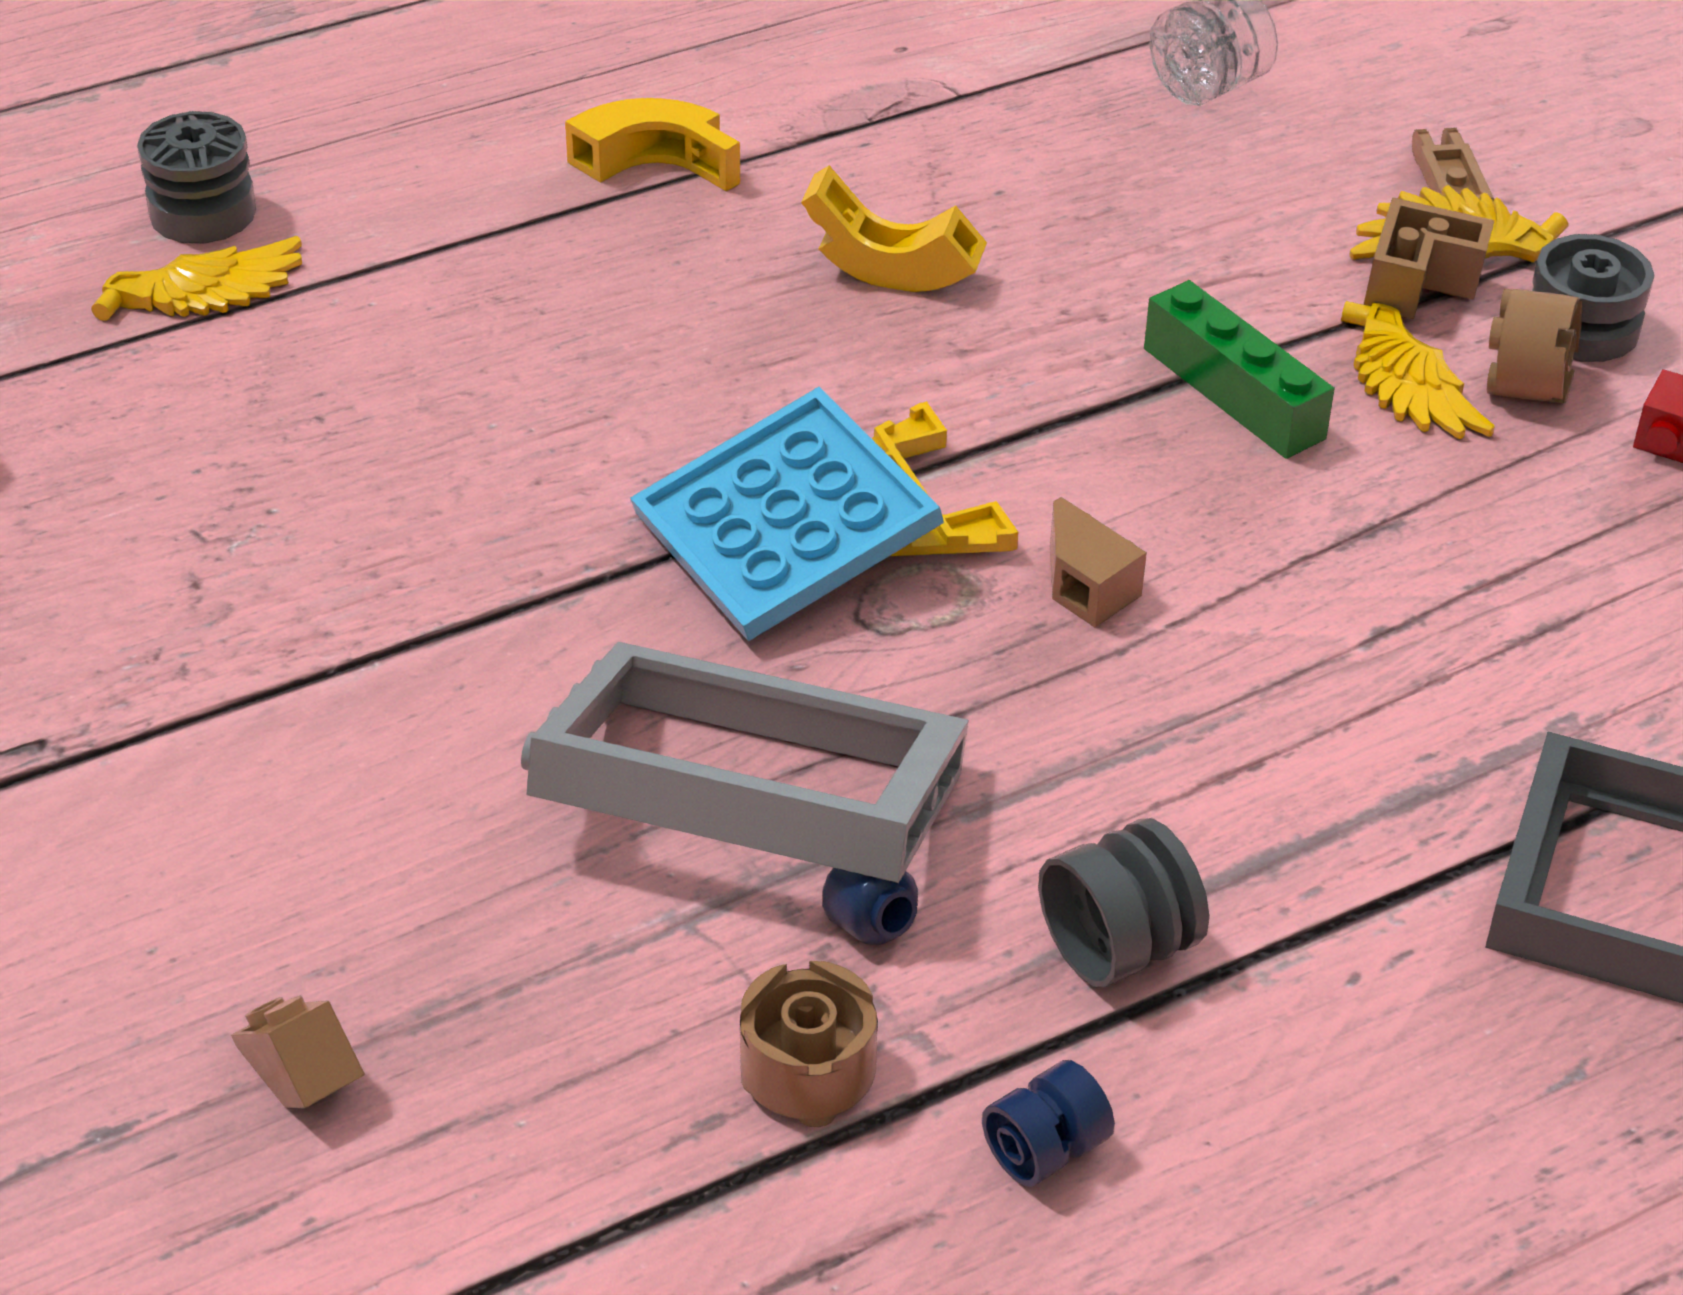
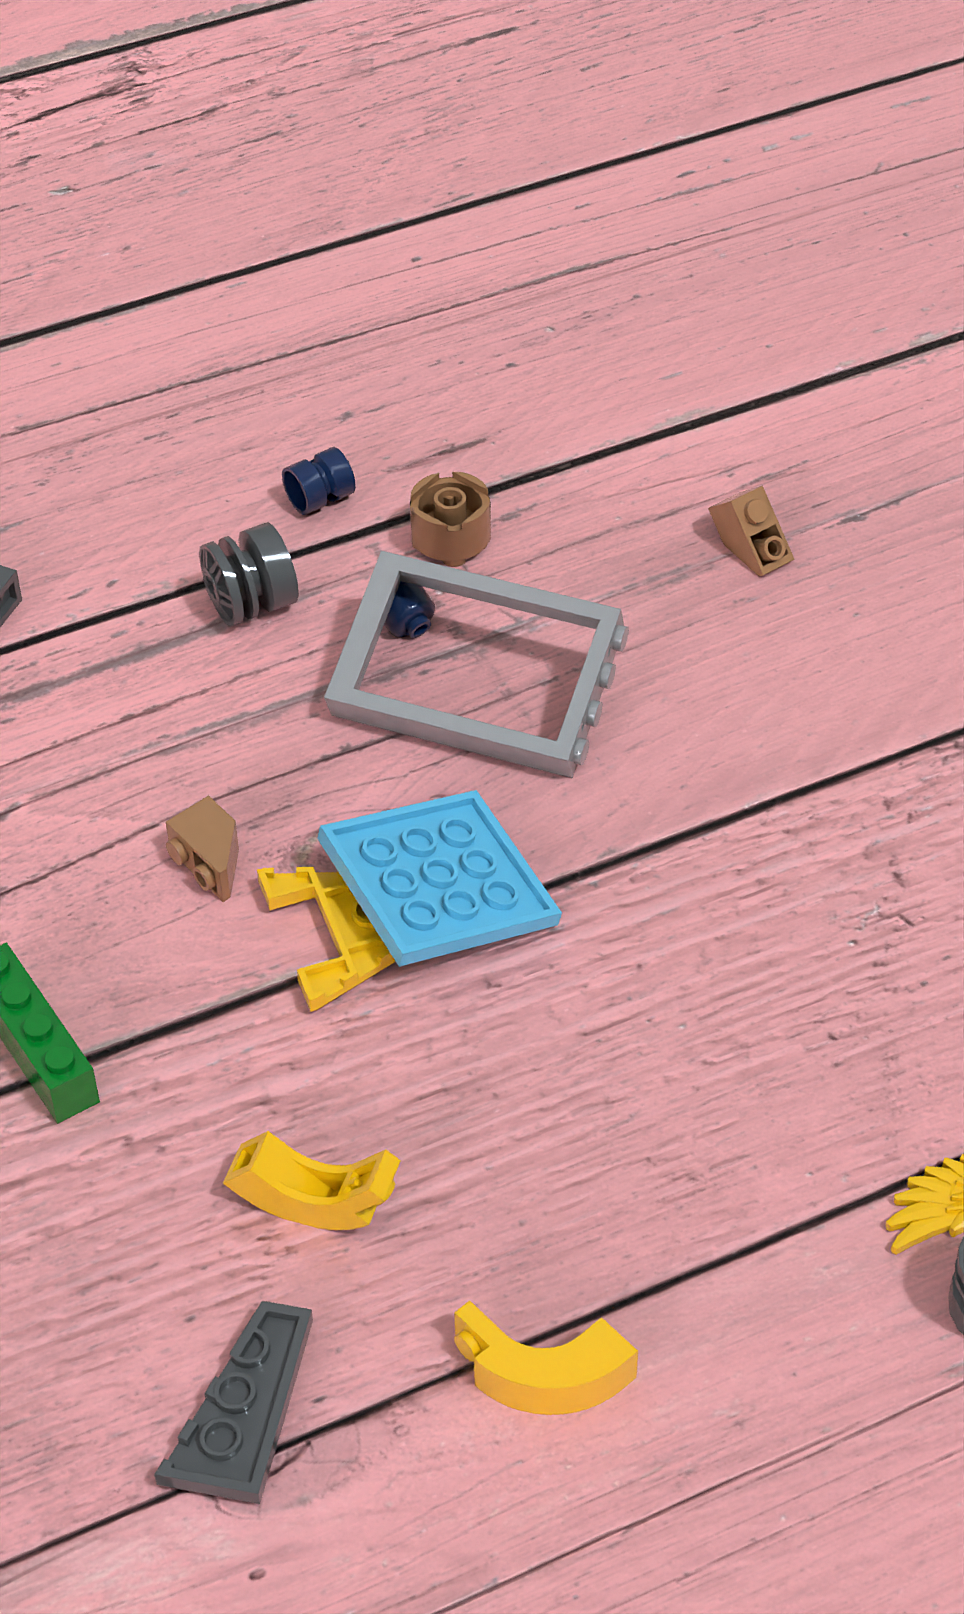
camera: 175 degrees left, 5 degrees up
(931, 117) = (239, 1424): none -> dark grey wing

